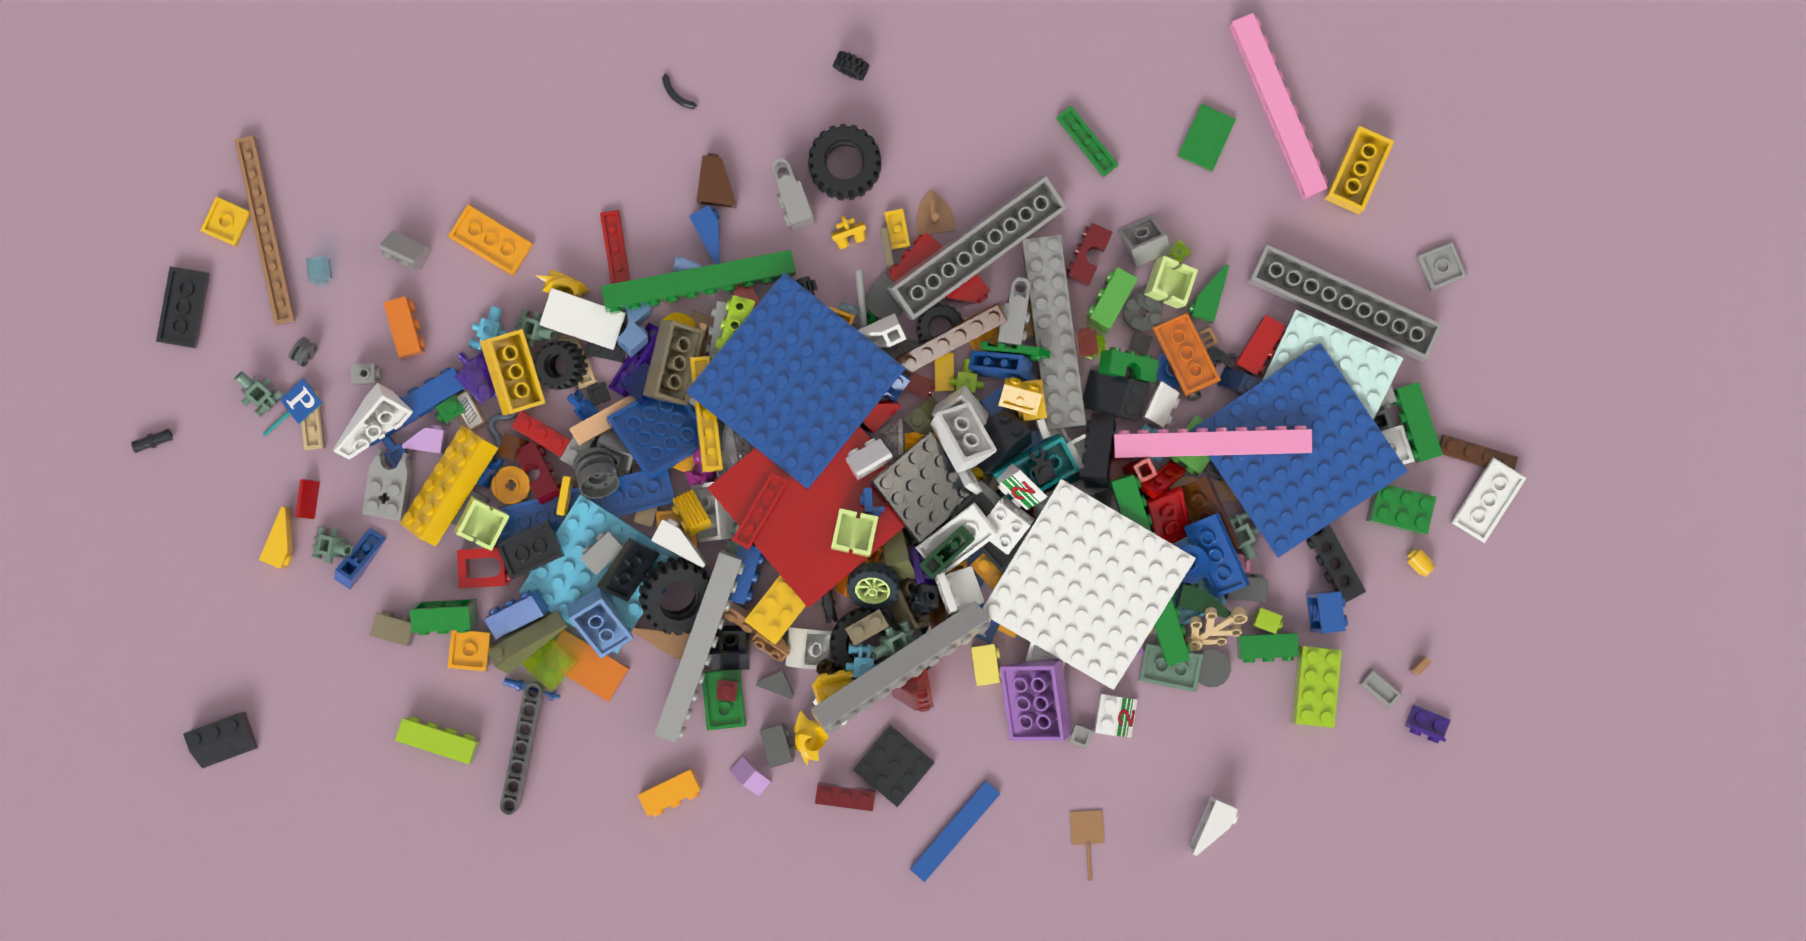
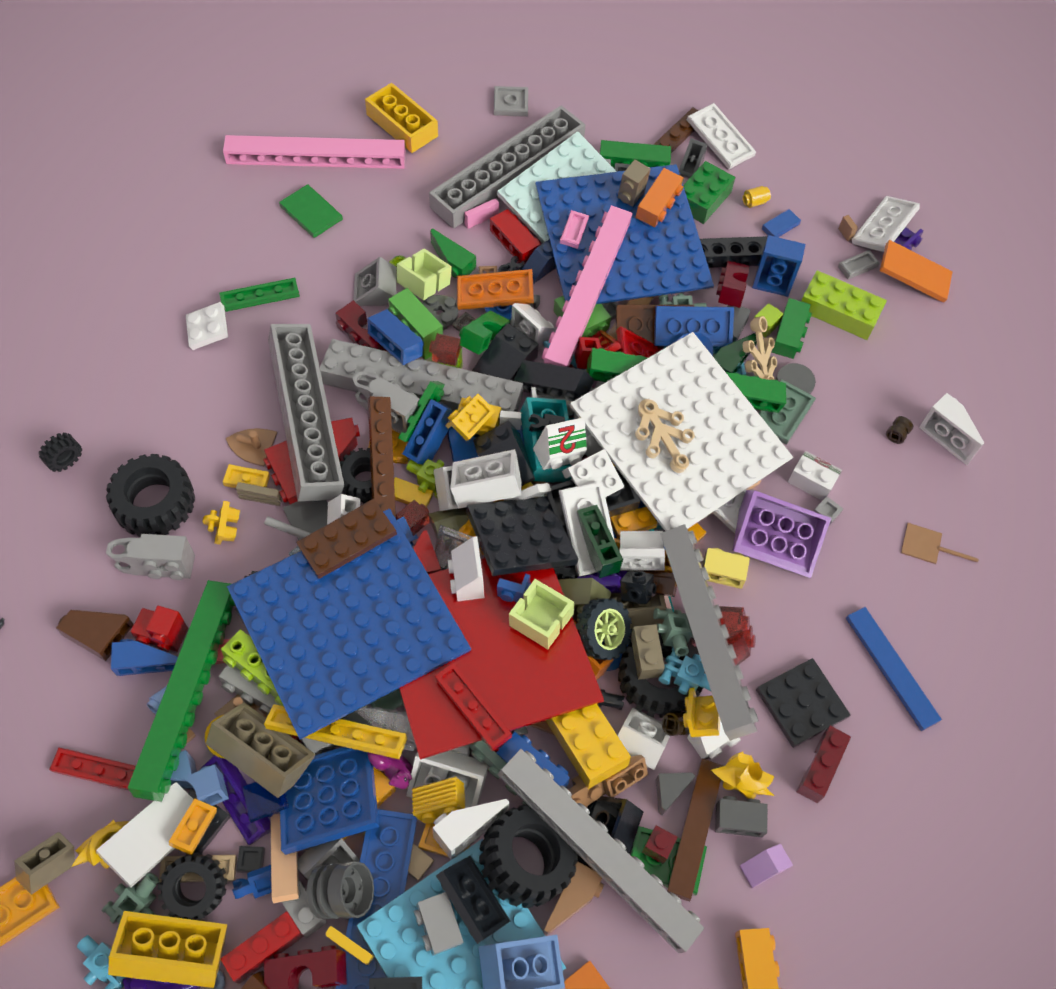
camera: 70 degrees left, 25 degrees down
(533, 252) = (44, 862): none -> dark tan brick
(597, 345) = (192, 826): none -> light orange plate
(736, 233) = (160, 628): none -> red brick
(752, 713) = (695, 831): none -> reddish brown tile
(861, 348) = (346, 538): none -> reddish brown plate
(1031, 113) = (206, 326): none -> white plate
(1070, 568) = (663, 432): none -> tan plant
(1082, 292) = (395, 337): none -> blue brick
(1195, 778) = (898, 431): none -> dark brown wheel
(1274, 301) = (481, 213): none -> bright pink tile
(1276, 403) = (574, 229): none -> bright pink tile
(1276, 577) = (732, 284): none -> dark red arch
(1347, 440) = (633, 183): none -> dark tan brick
(1349, 471) = (660, 197): none -> orange brick
(1390, 747) = (916, 271): none -> orange tile
(1398, 598) = (781, 224): none -> blue tile
(1439, 482) = (693, 157): none -> dark grey slope
(1443, 702) = (885, 223): none -> white tile

